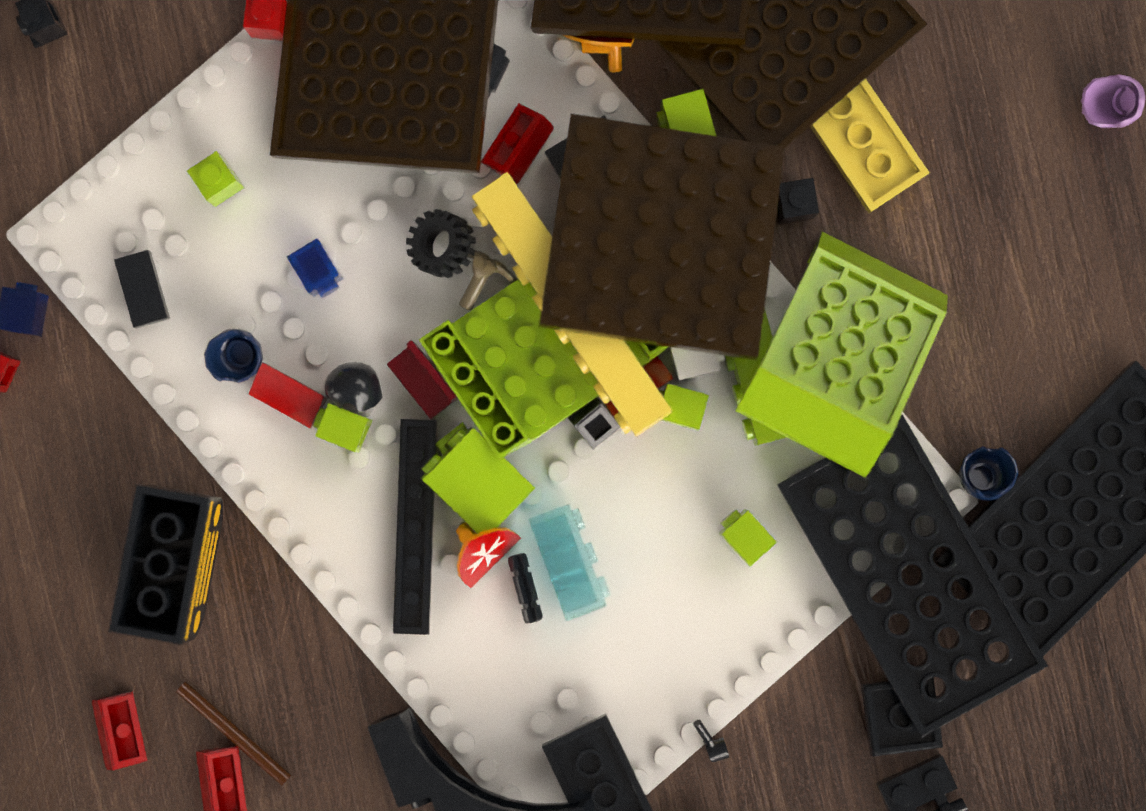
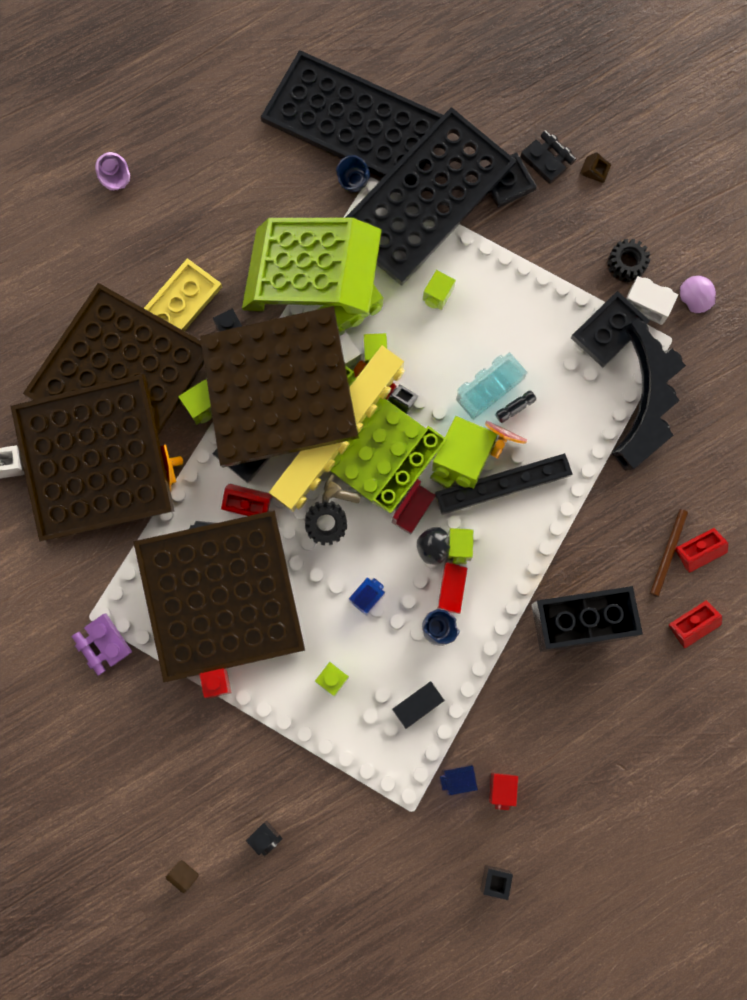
camera: 110 degrees left, 10 degrees down
(716, 748) = (564, 272): black hand -> none

